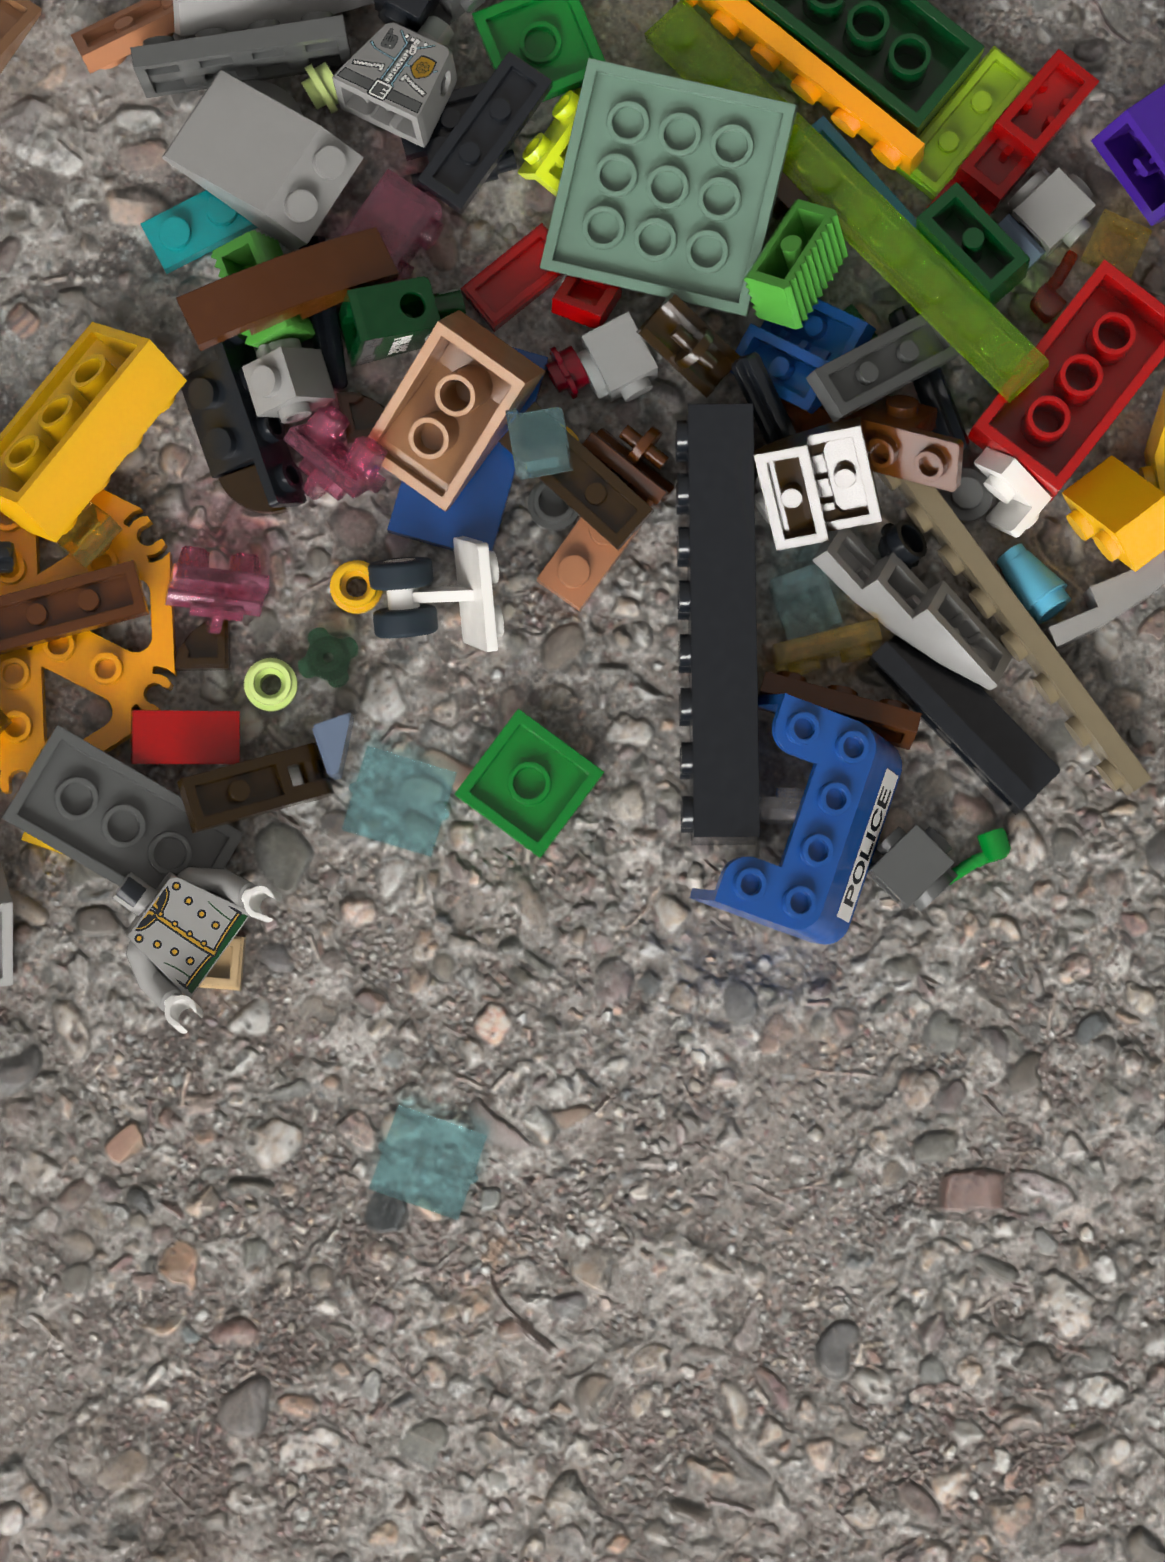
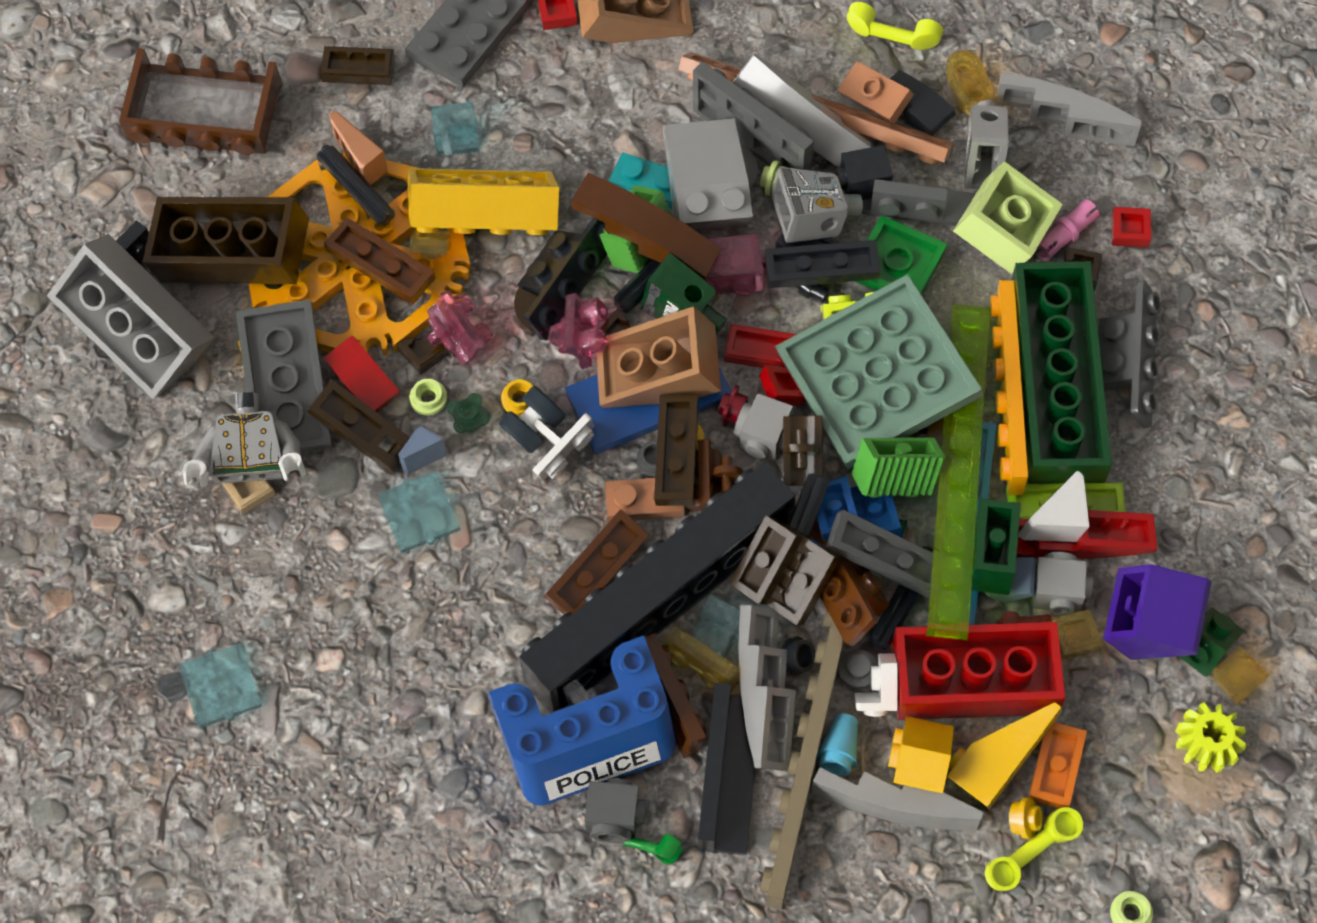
camera: 50 degrees right, 20 degrees down
(288, 380) = (600, 274): light grey brick -> none
(529, 783) = (484, 566): green plate -> none
(539, 442) = (673, 409): clear light blue panel -> none
(628, 666) = (597, 563): none -> reddish brown plate
(986, 141) = (1062, 516): none -> white slope

